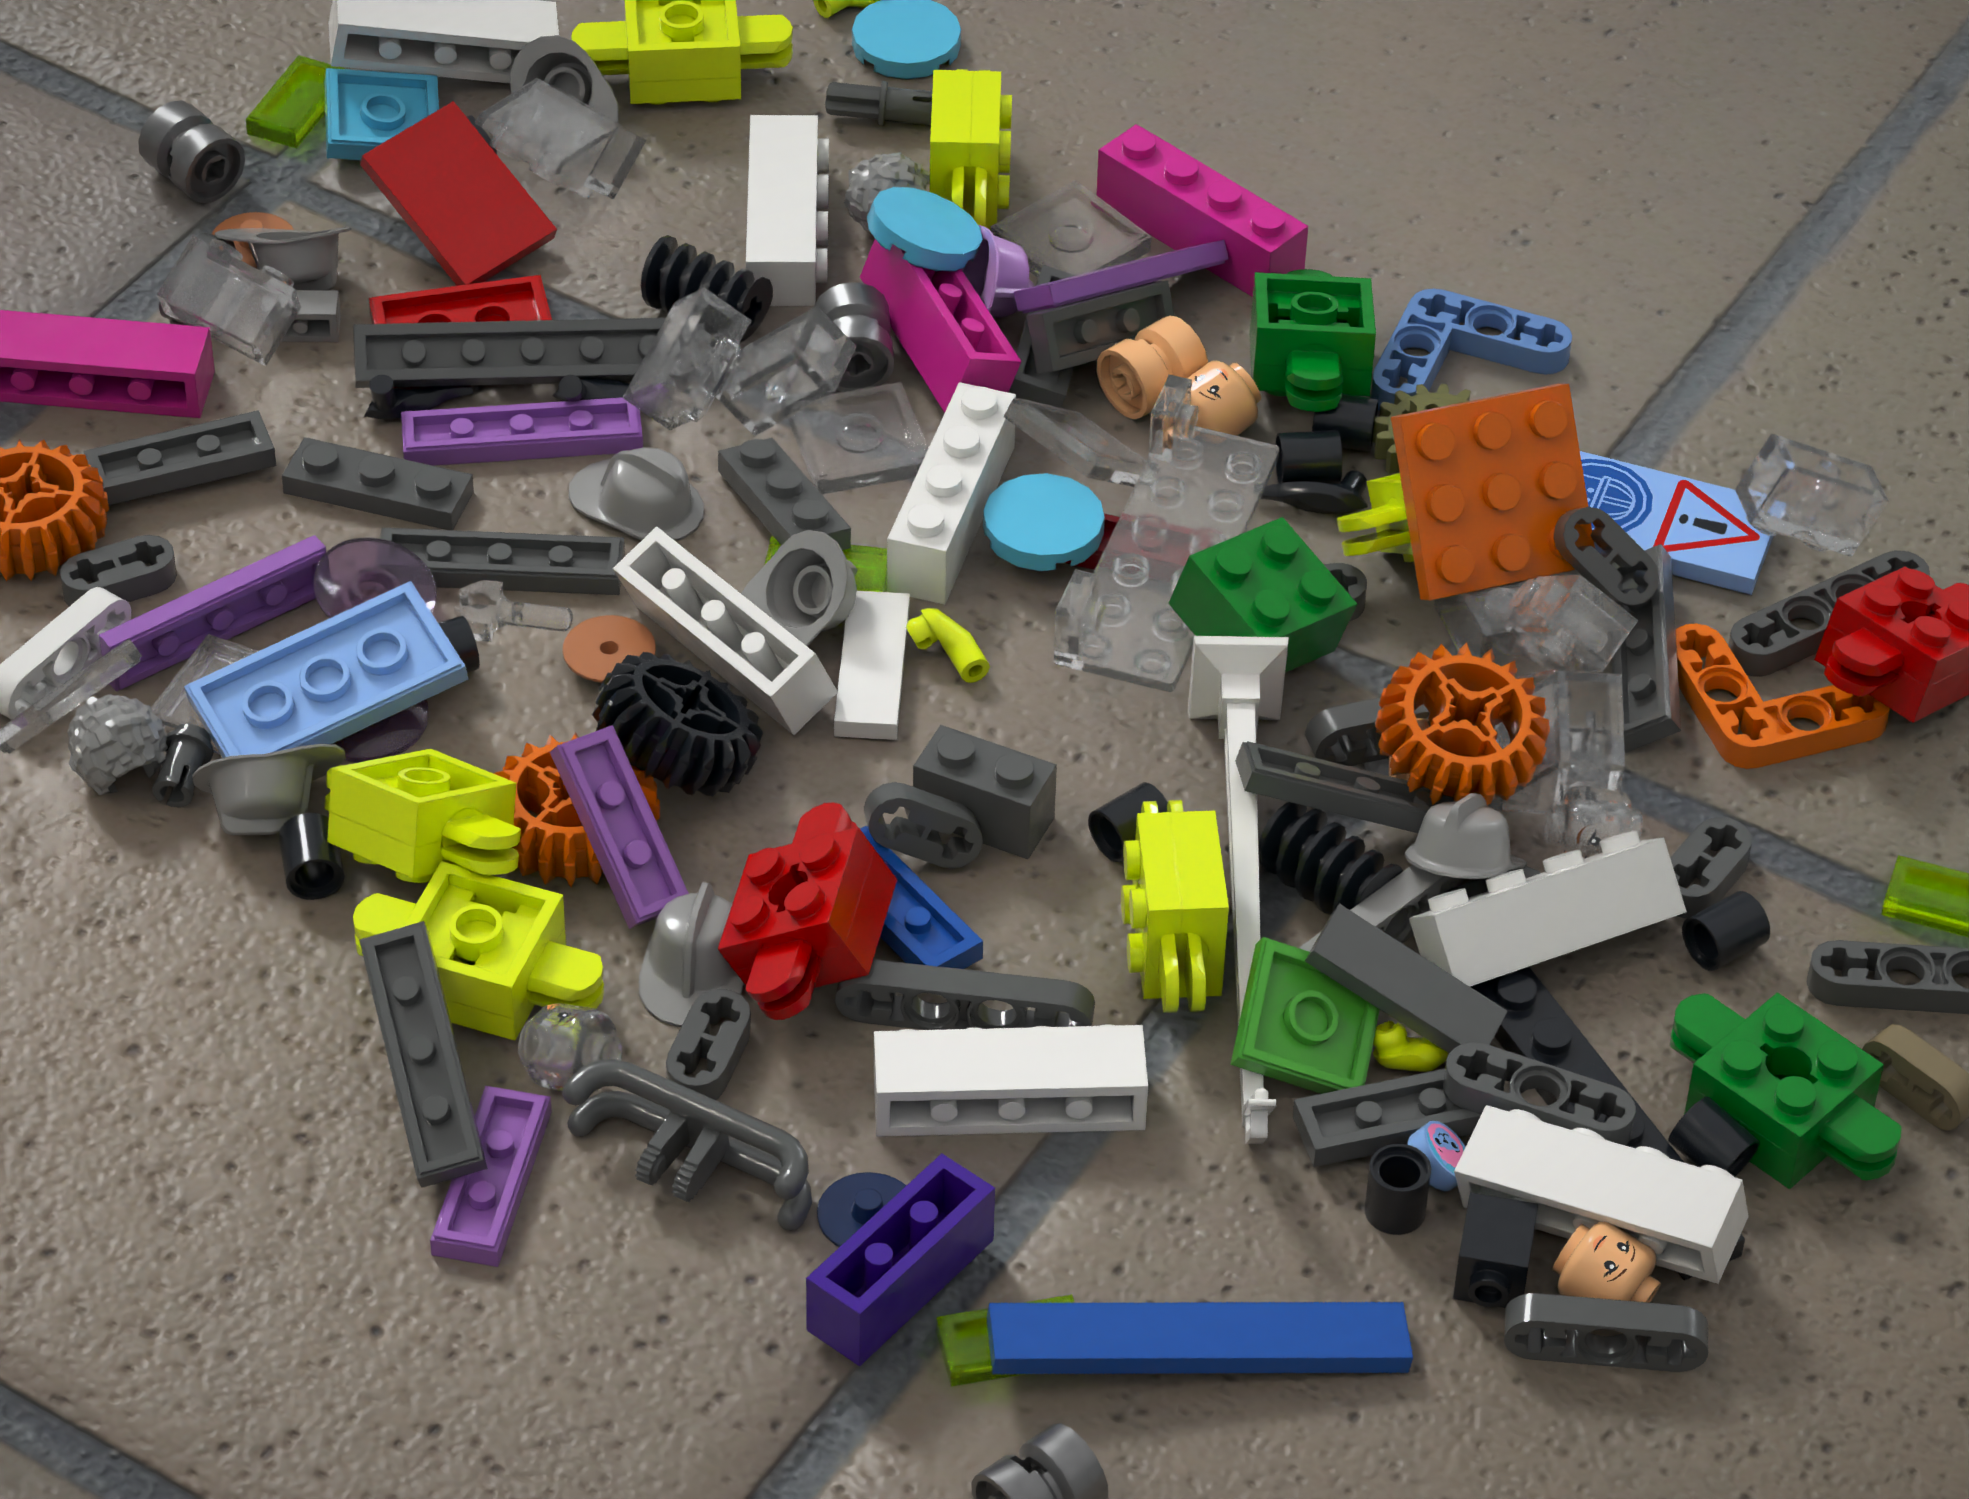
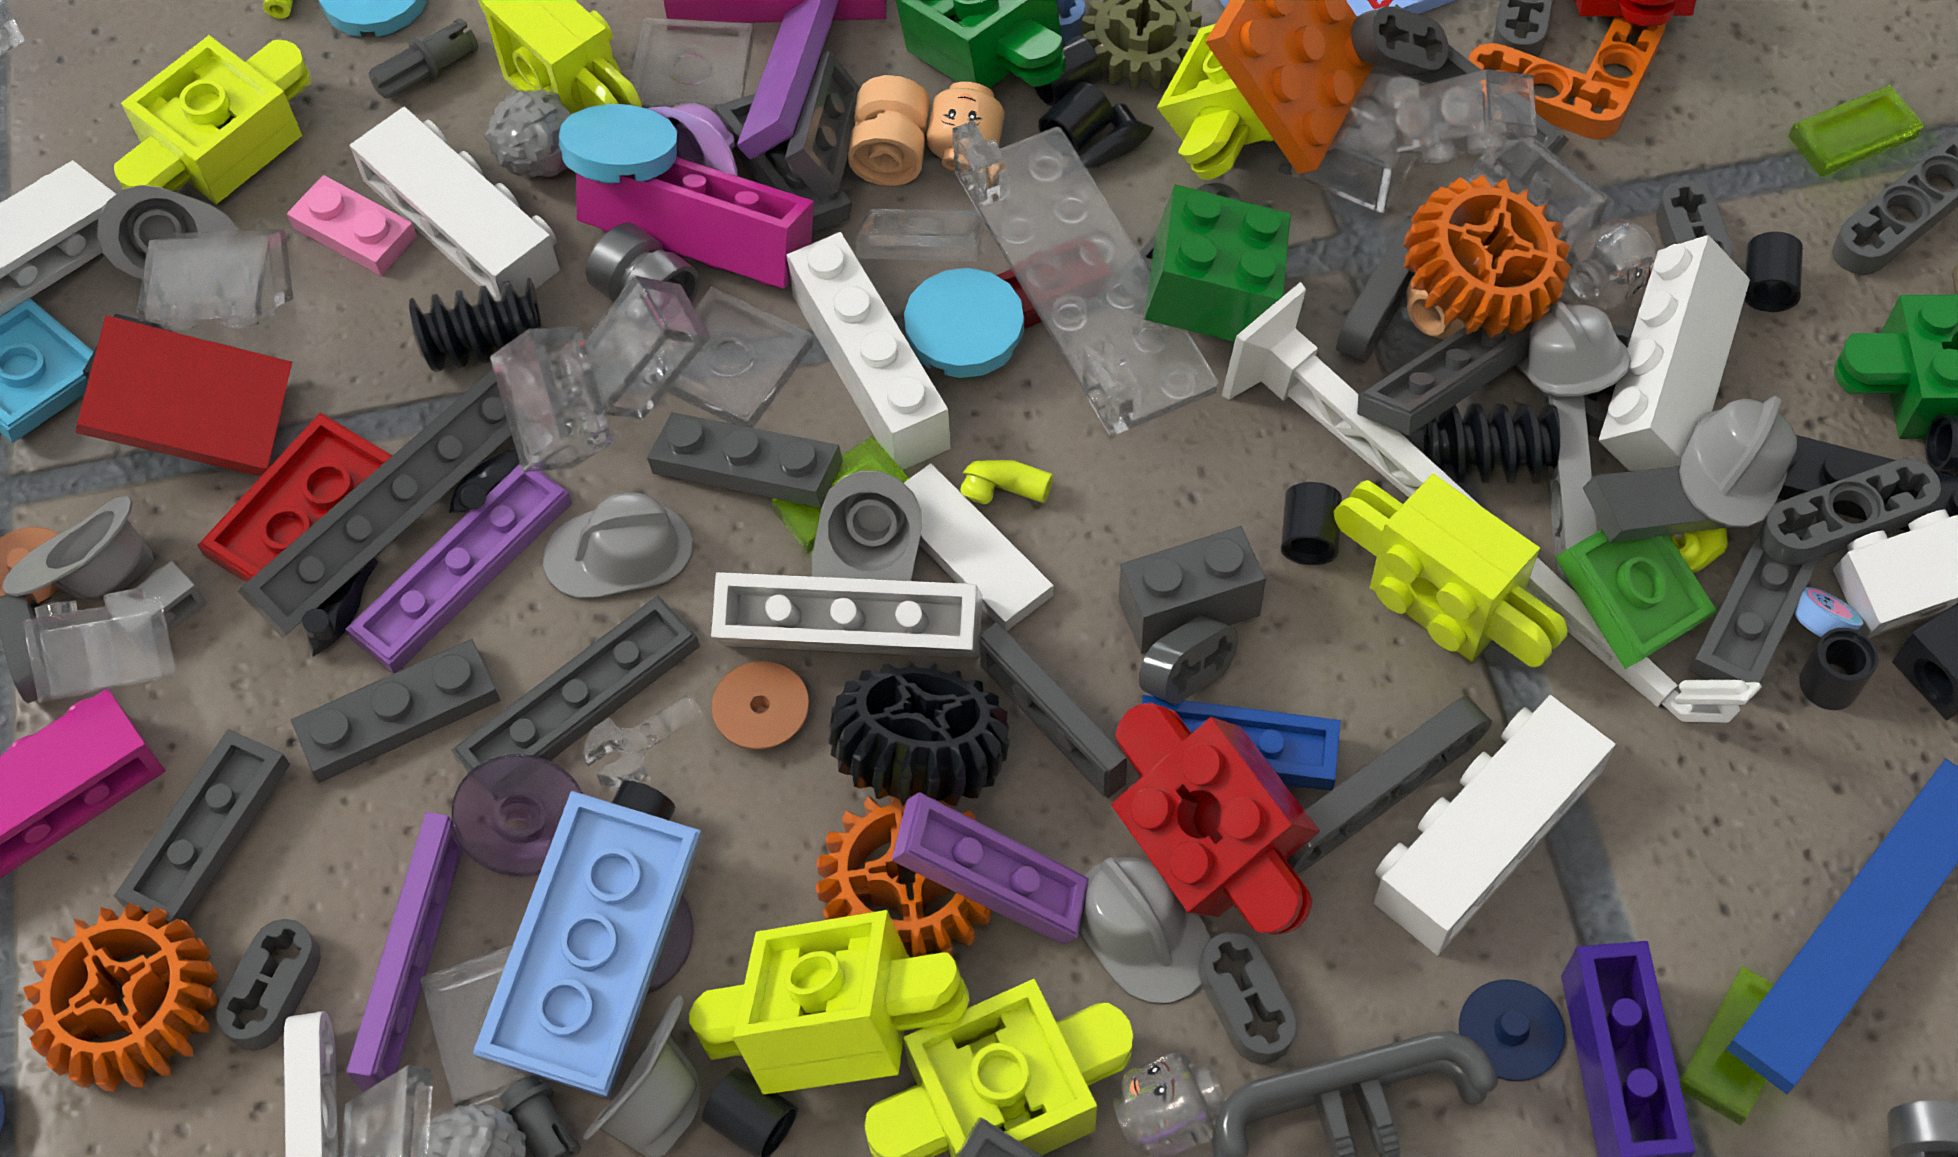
camera: 40 degrees left, 15 degrees up
(705, 178) = (352, 225): none -> bright pink plate
(795, 771) = (1052, 711): none -> dark grey tile
(1487, 997) = (1738, 461): none -> light grey piece

